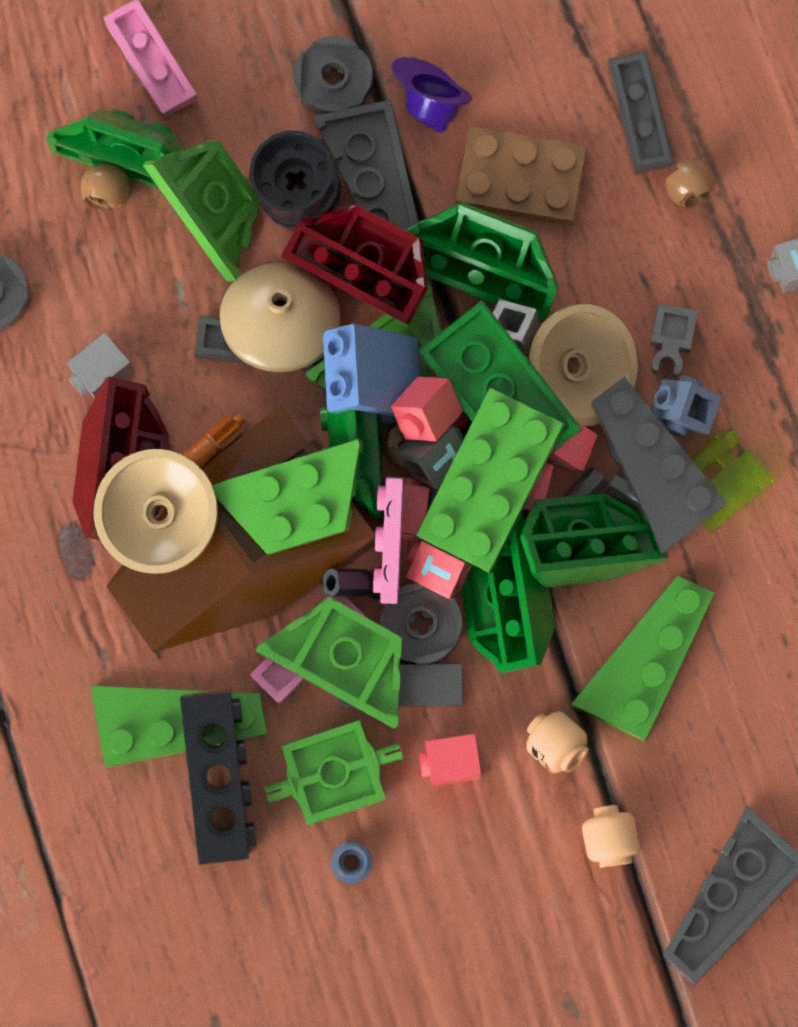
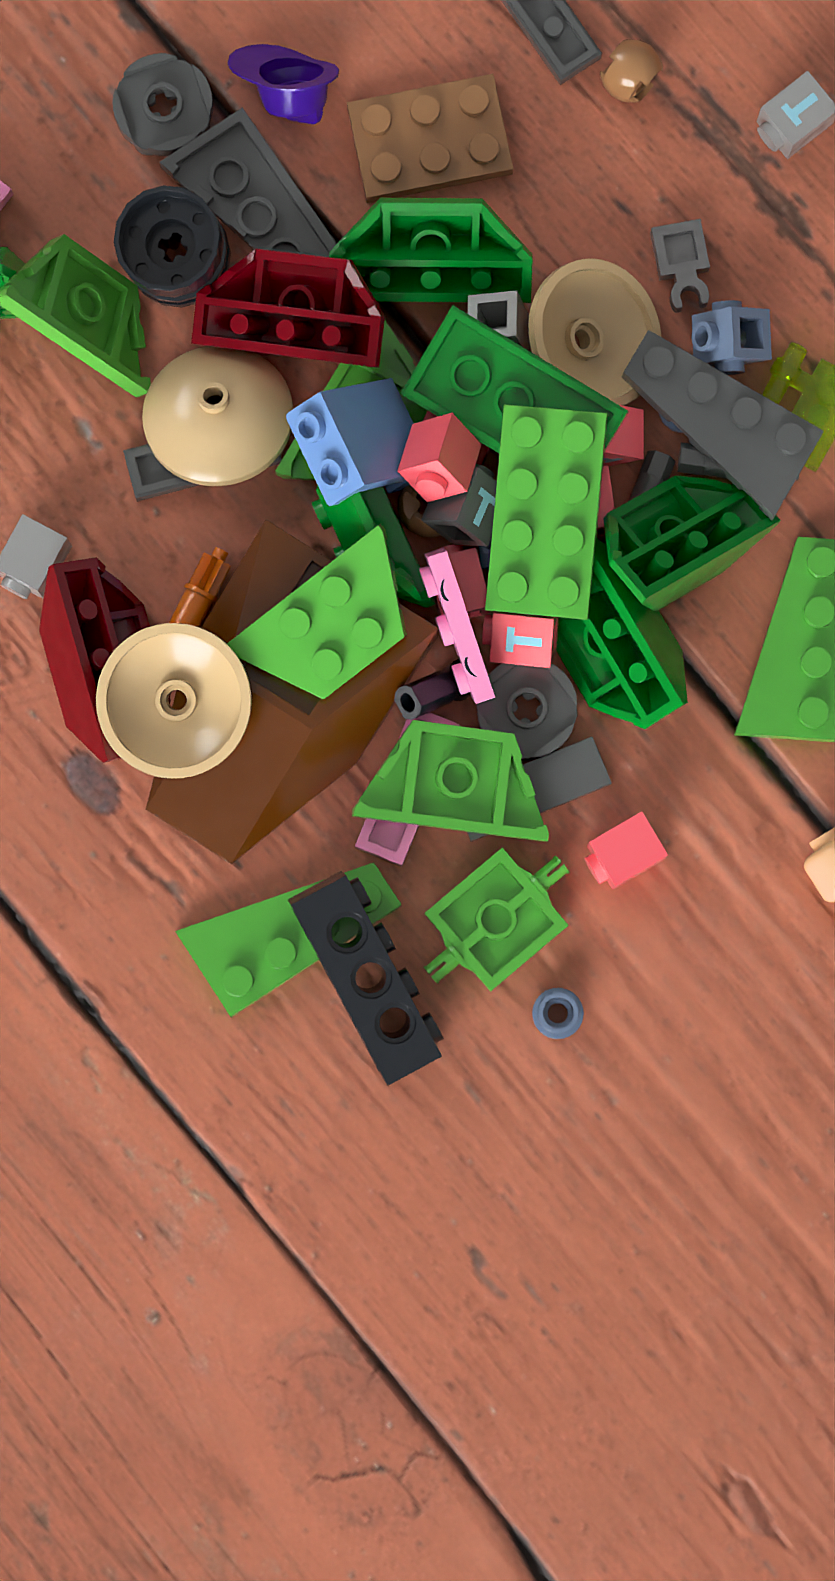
camera: 25 degrees left, 5 degrees up
(557, 742) = (737, 782): light nougat head -> none

